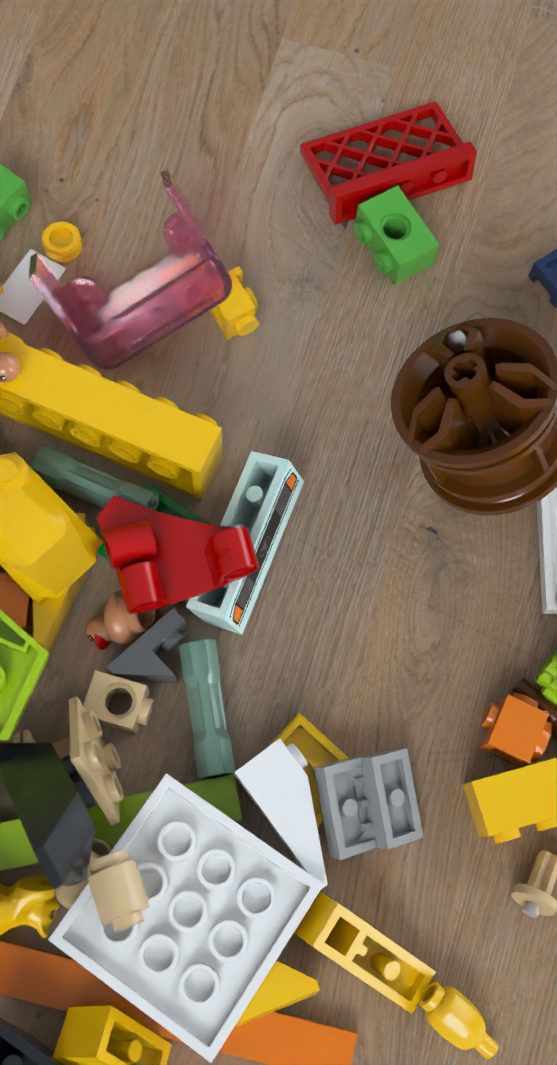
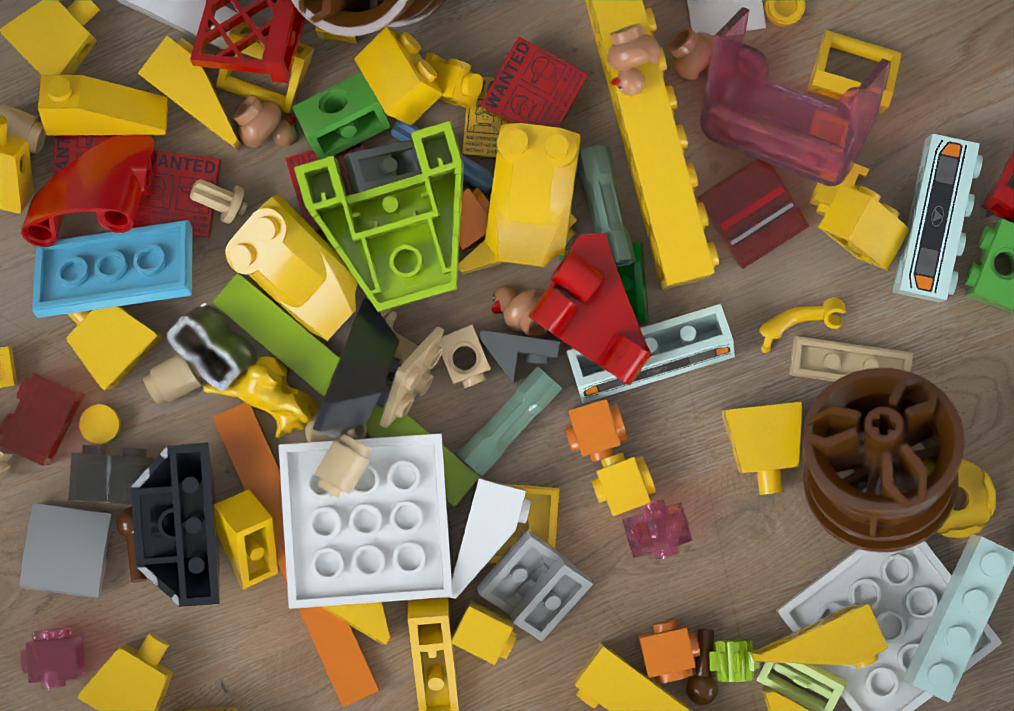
camera: 65 degrees right, 15 degrees up
(36, 325) = (691, 52): none -> nougat animal
(152, 246) = (834, 85): none -> yellow tile
(201, 377) = (753, 212): none -> clear red slope
(272, 639) = (596, 429): none -> orange brick
(281, 301) = (864, 226): none -> yellow brick
(306, 420) = (779, 324): none -> yellow piece
(319, 255) = (937, 218): none -> brick
(338, 653) = (623, 483): none -> yellow brick
(366, 413) = (833, 360): none -> tan tile
(380, 883) = (484, 633): none -> yellow brick
(392, 510) = (765, 441): none -> yellow torso
(401, 653) = (657, 529): none -> clear pink brick

